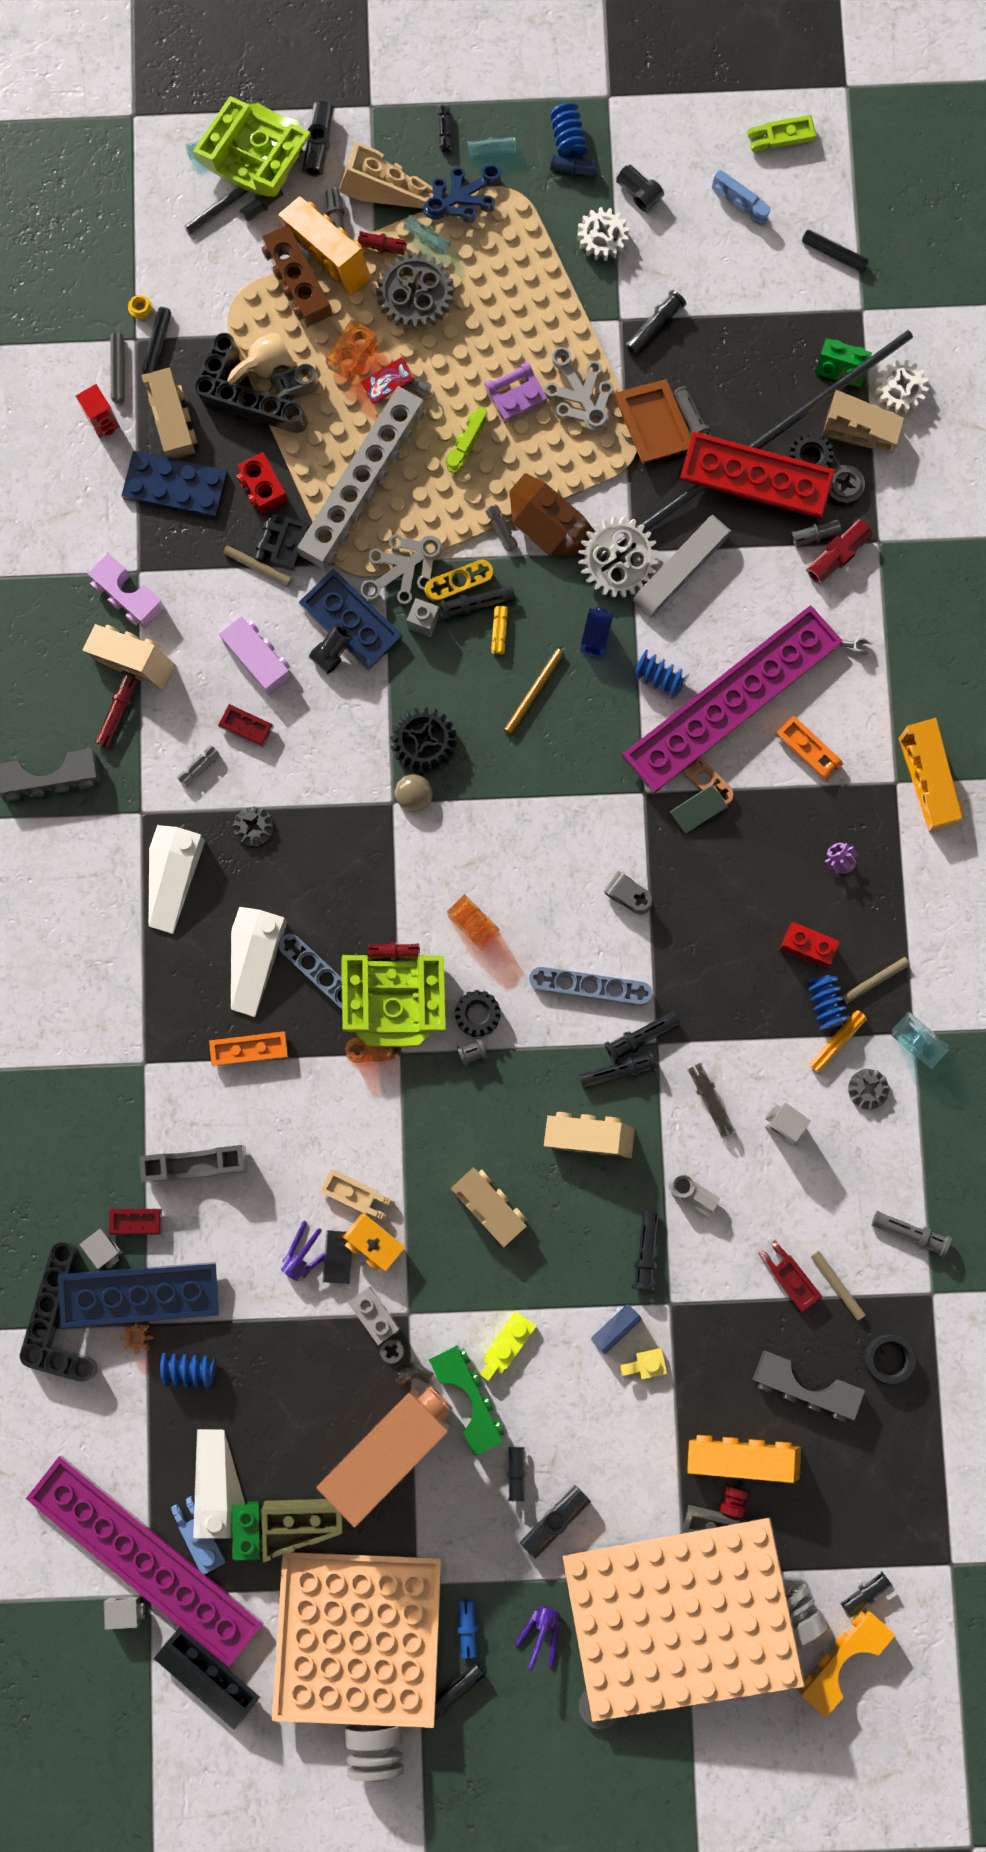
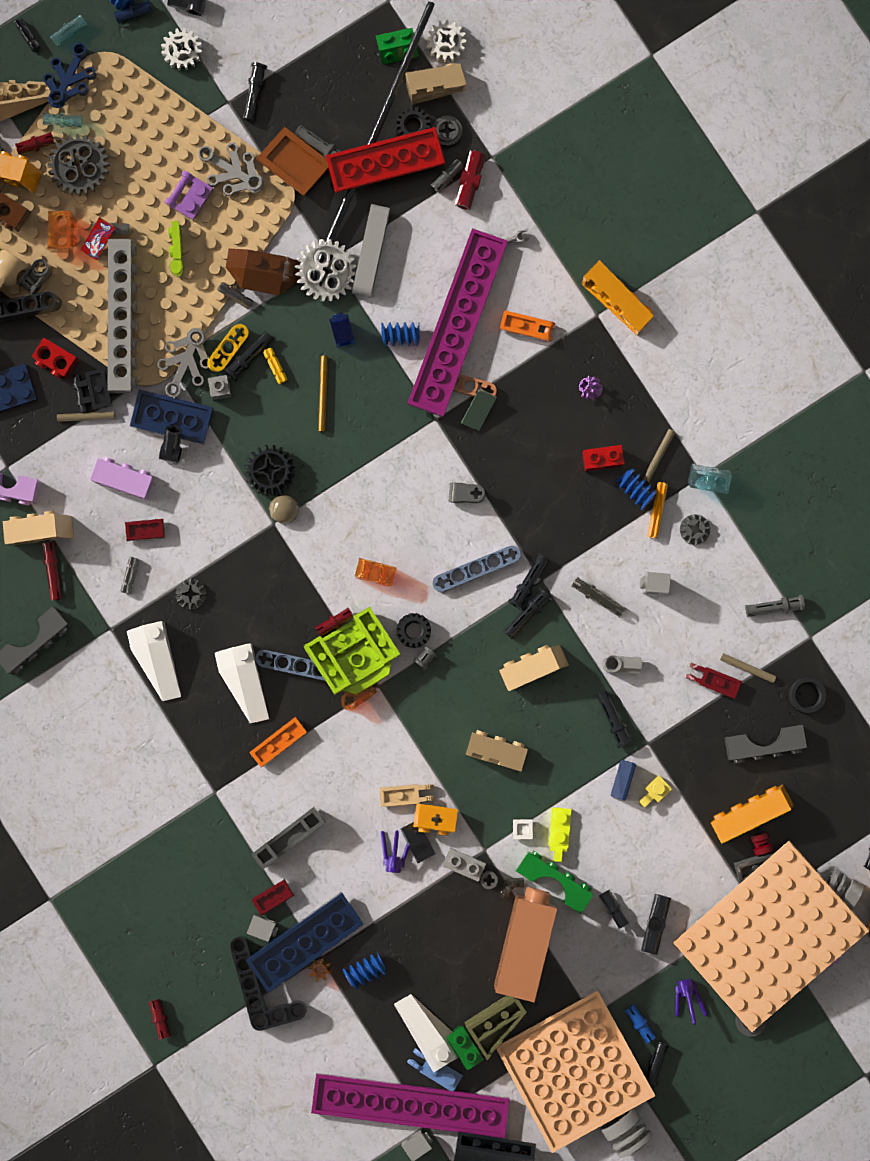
camera: 30 degrees left, 5 degrees up
(466, 1315) = (523, 829): none -> white plate

